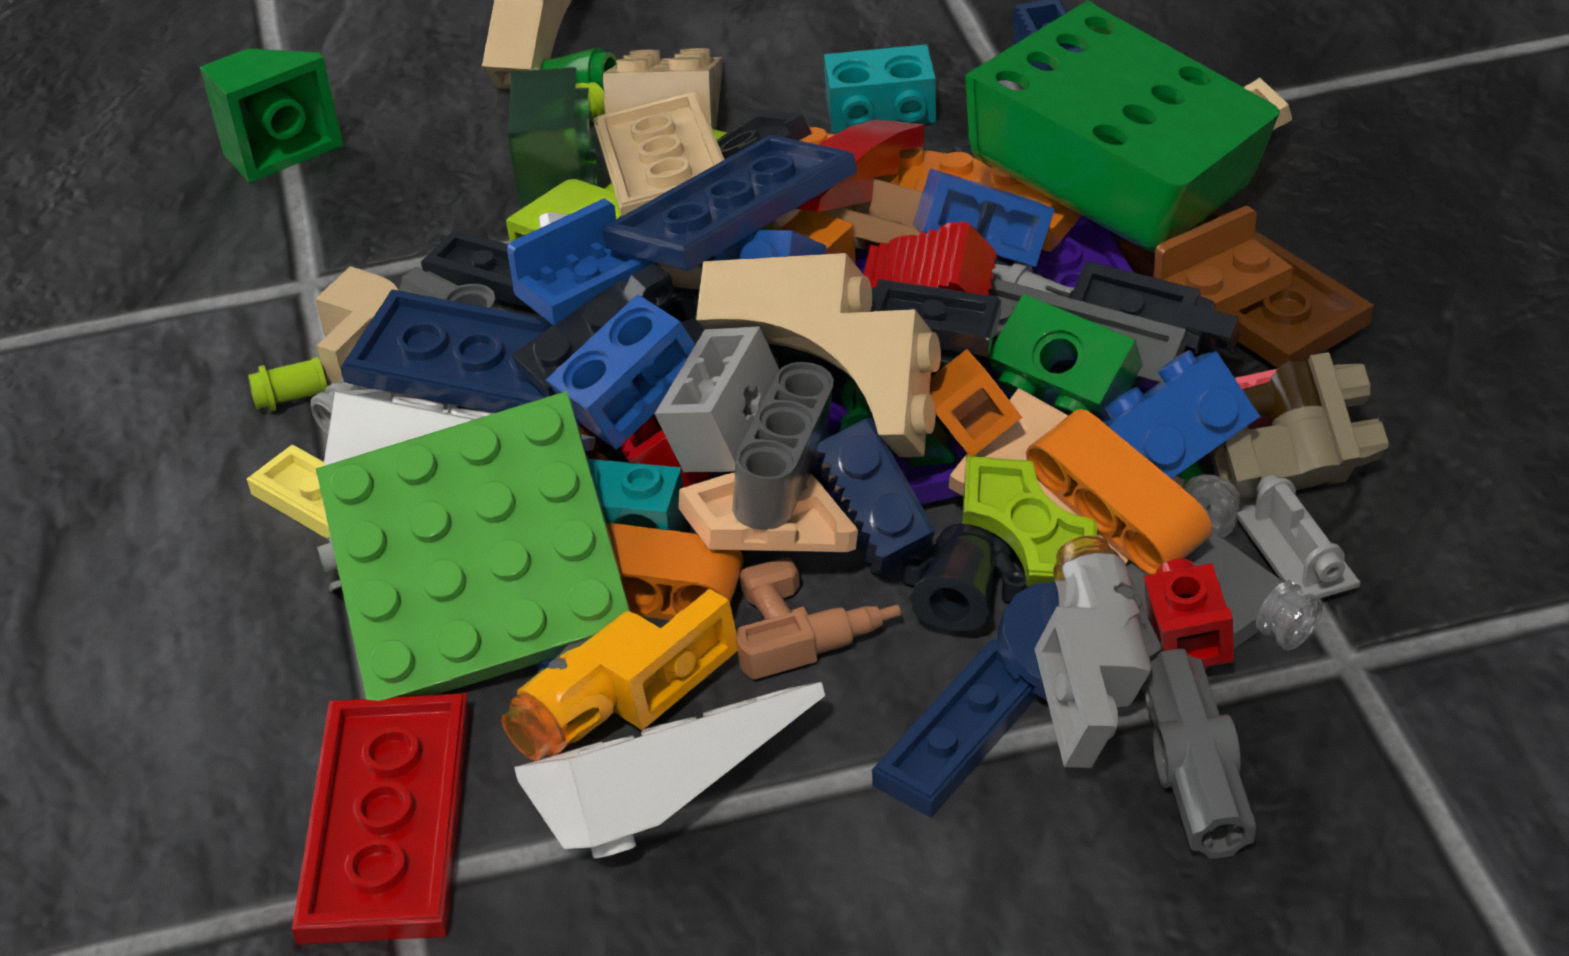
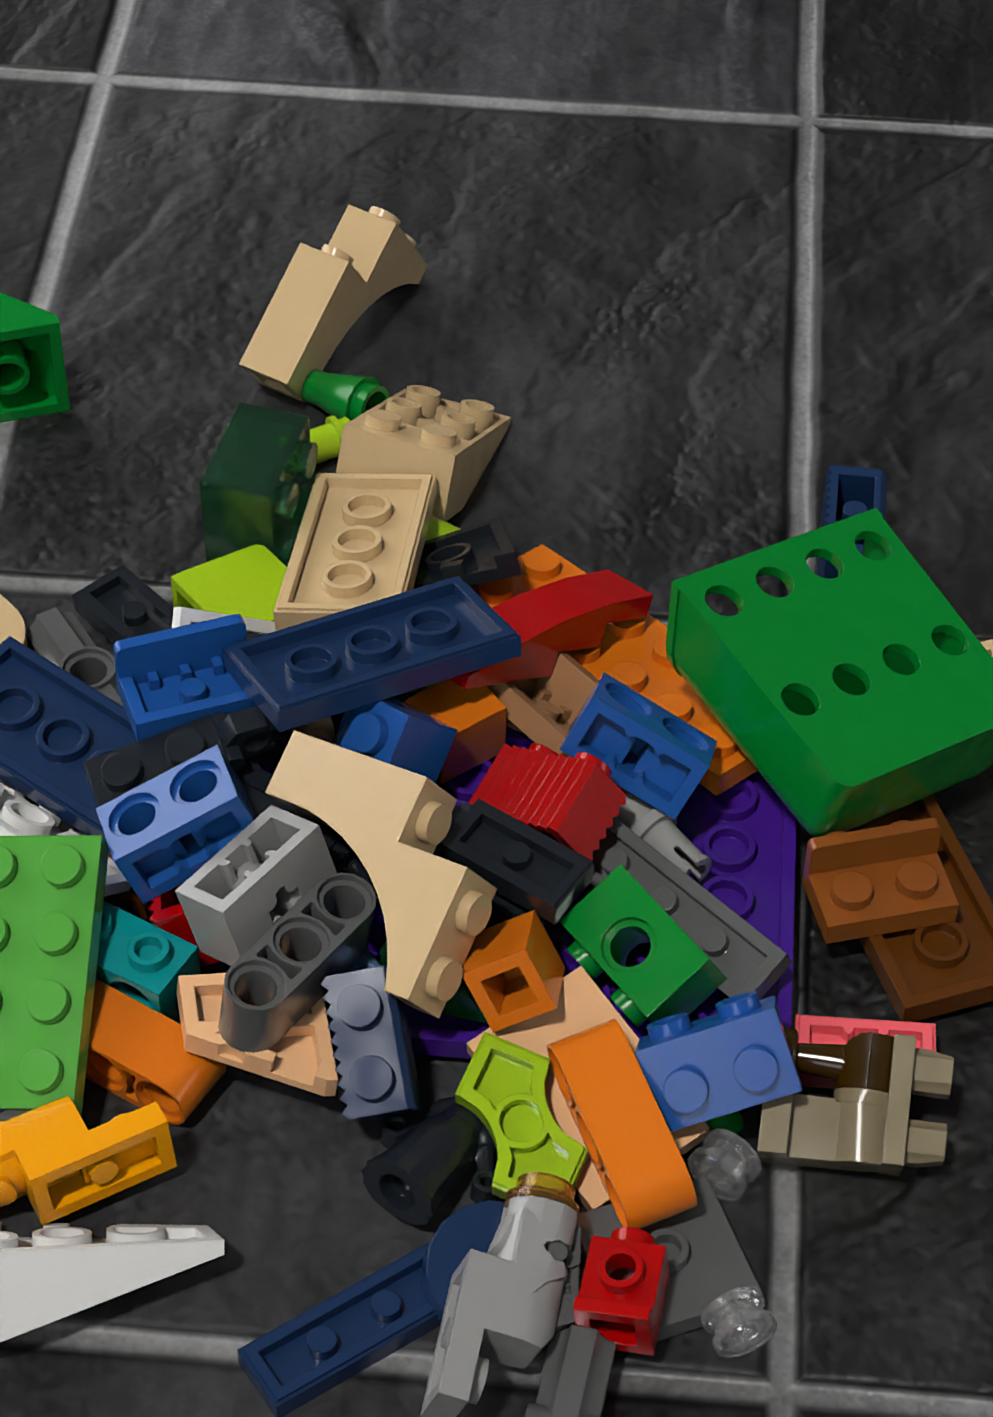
camera: 15 degrees right, 5 degrees up
(792, 636) = (236, 1166): nougat piece -> none
(880, 86) = (649, 517): teal brick -> none
(1159, 302) = (776, 909): black hinge -> none
(1294, 541) = (795, 1238): light grey hinge -> none

